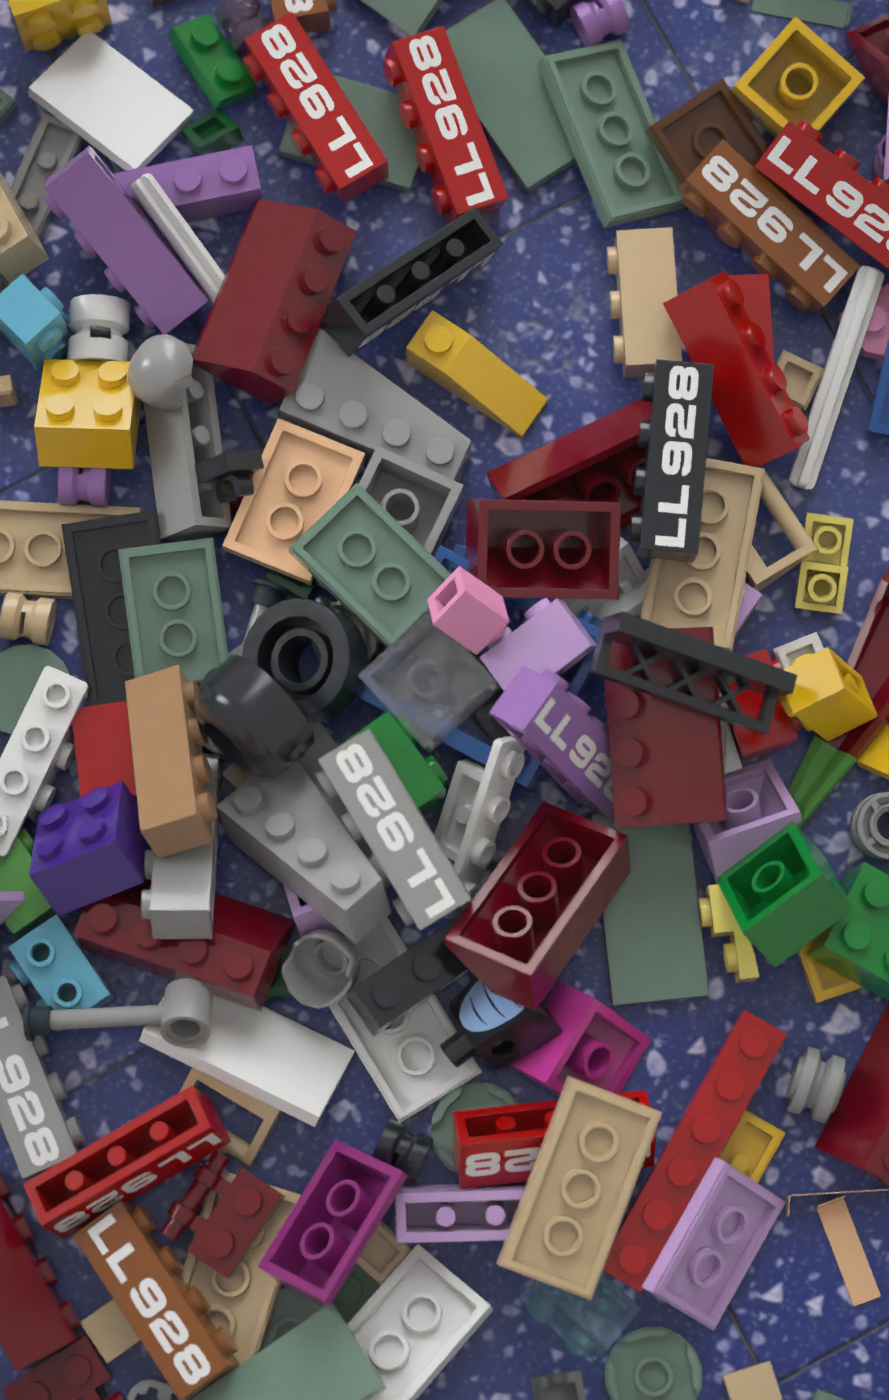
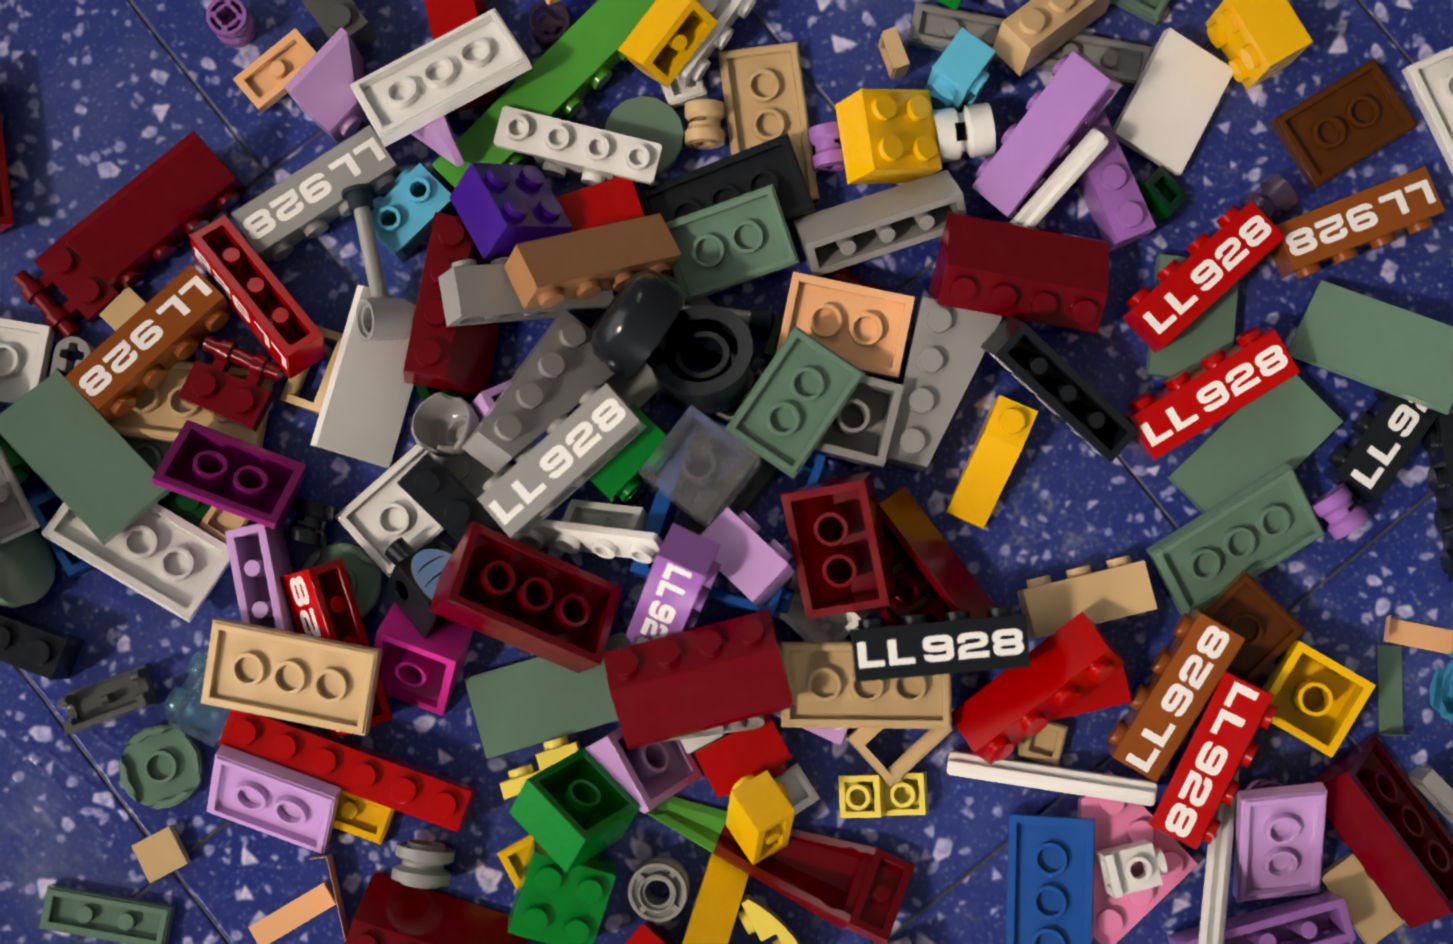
camera: 75 degrees right, 5 degrees up
(161, 372) = (932, 187): light grey hair -> none
(212, 61) = (1228, 180): green plate -> none
(231, 473) = (856, 265): black tile -> none
(468, 611) = (763, 488): bright pink brick -> none
(697, 655) = (761, 693): black fence -> none

